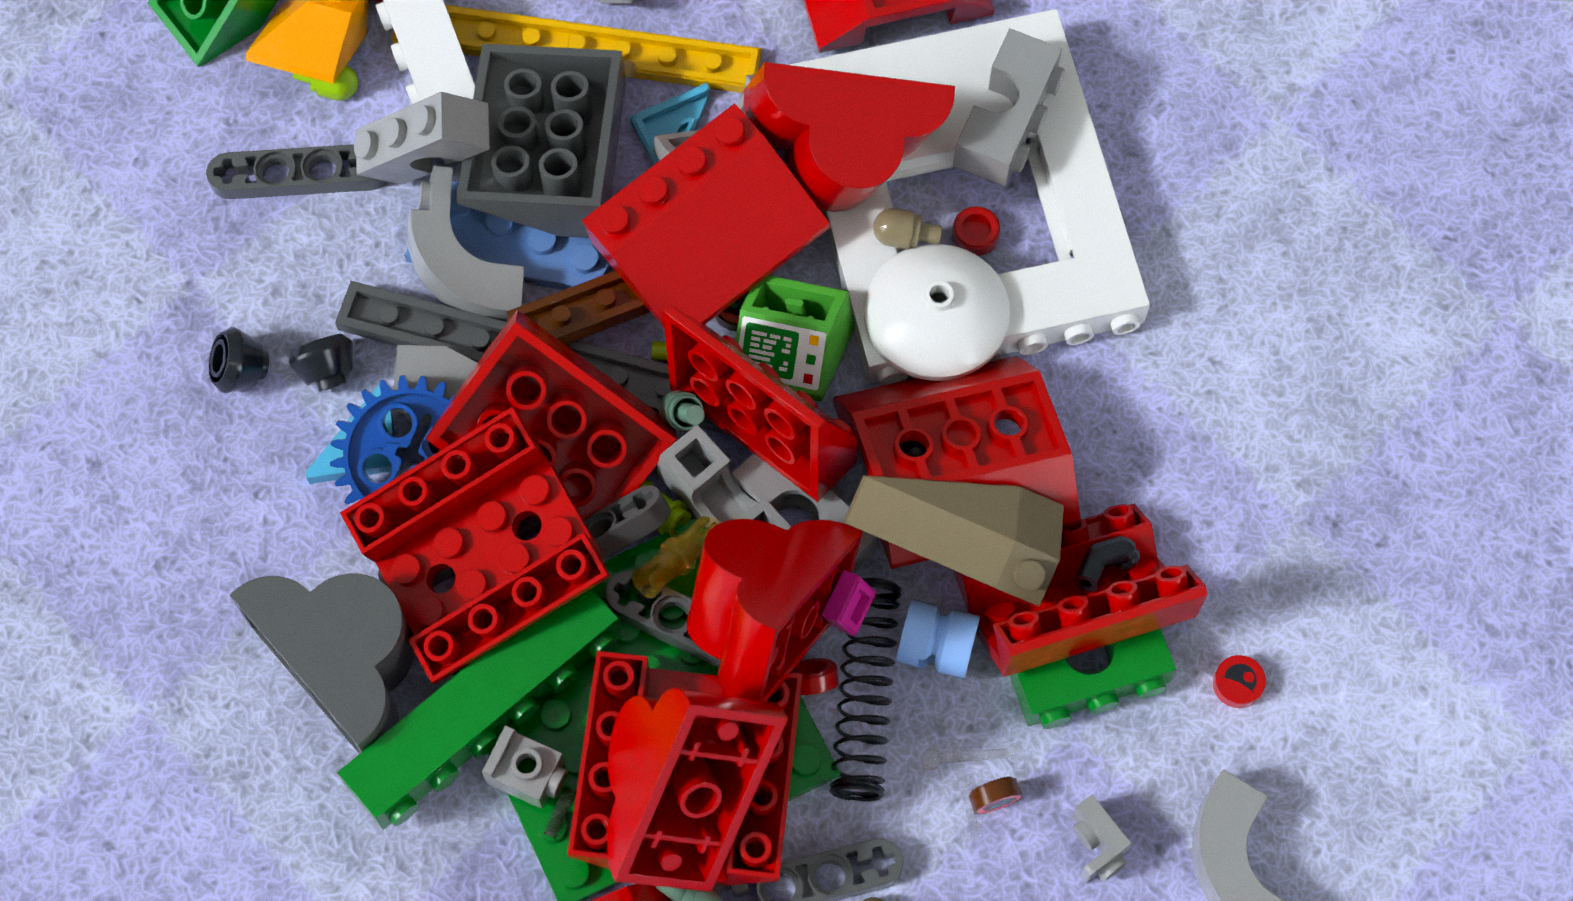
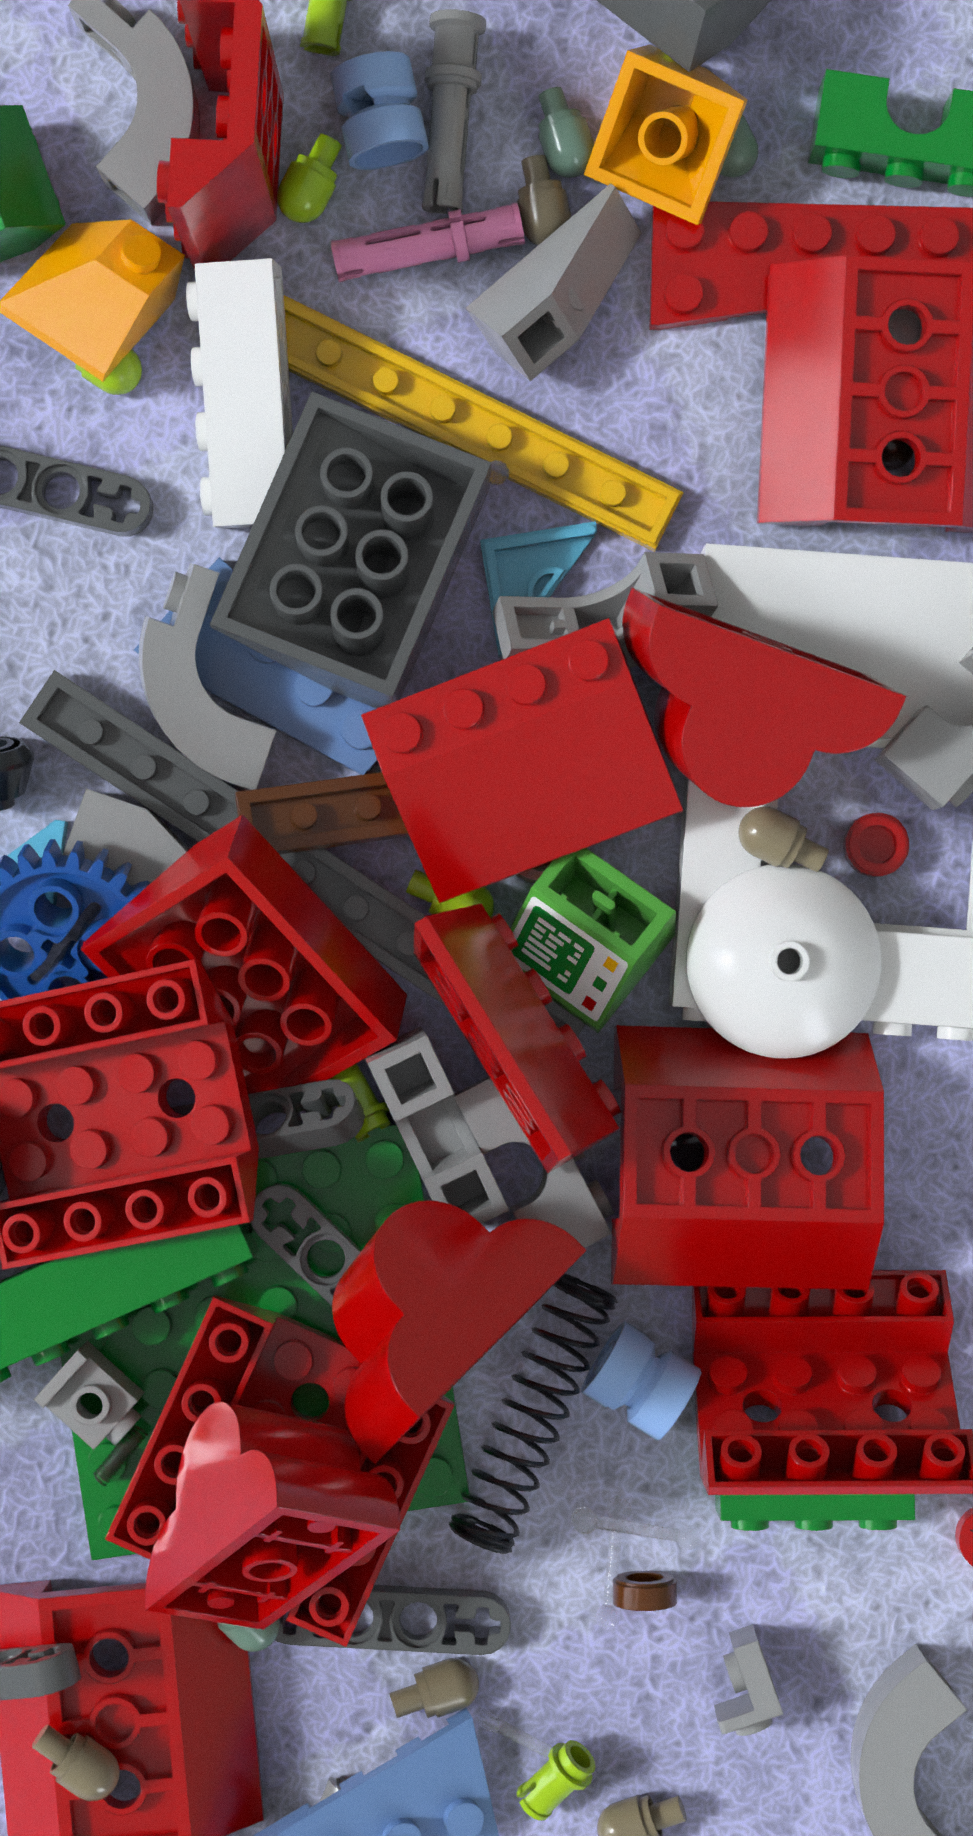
camera: 20 degrees right, 20 degrees up
(403, 142) = (190, 522): light grey arch -> none
(674, 558) = (351, 1190): clear yellow pin -> none
(680, 414) = (416, 997): sand green cylinder -> none
(818, 675) = (482, 1383): red tile -> none
(849, 603) = (542, 1324): dark pink tile -> none
(979, 530) = (734, 1297): dark tan wedge -> none
(1113, 551) = (878, 1350): black arm -> none

